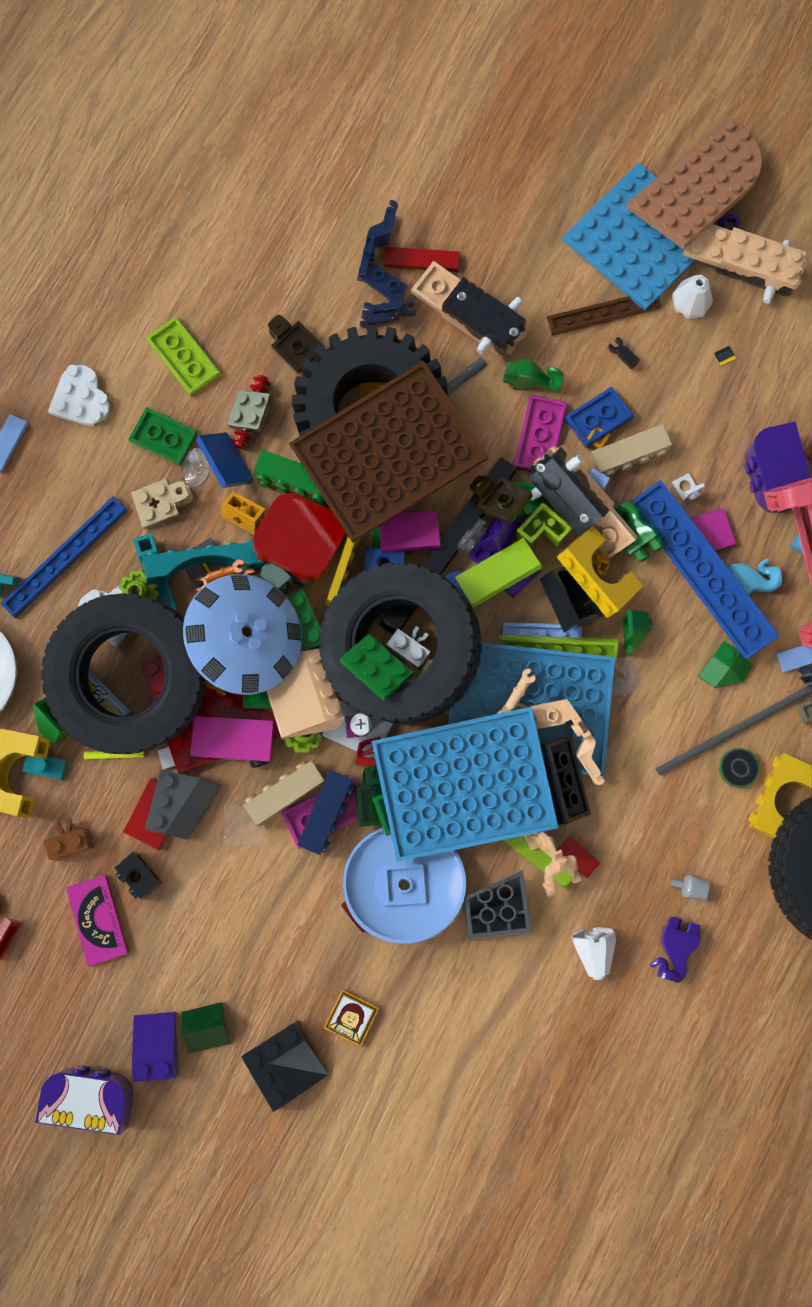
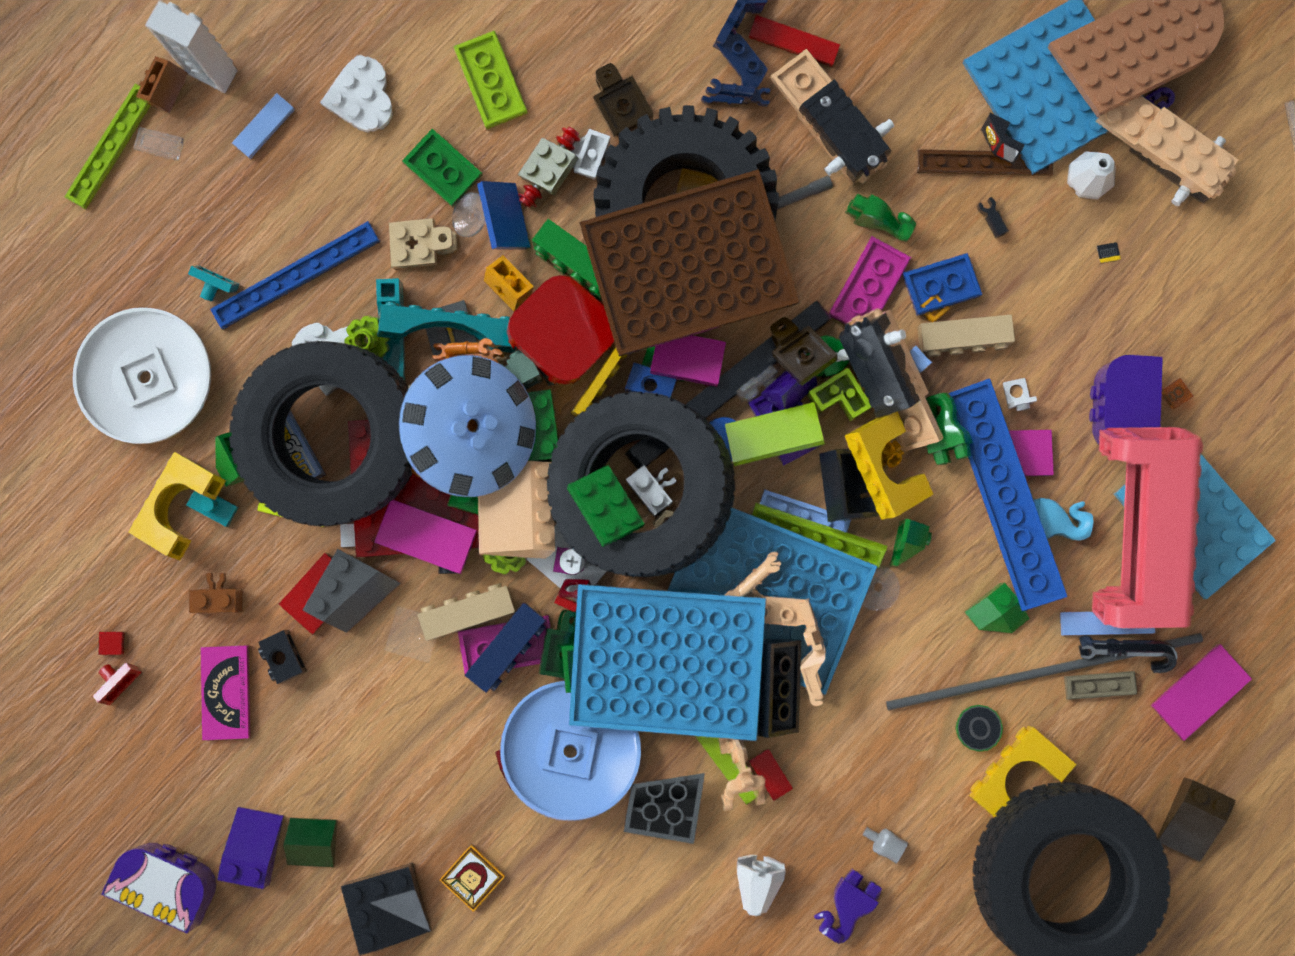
camera: 15 degrees right, 5 degrees up
(282, 389) = (590, 153): none -> white slope
(611, 292) = (1000, 144): none -> slope

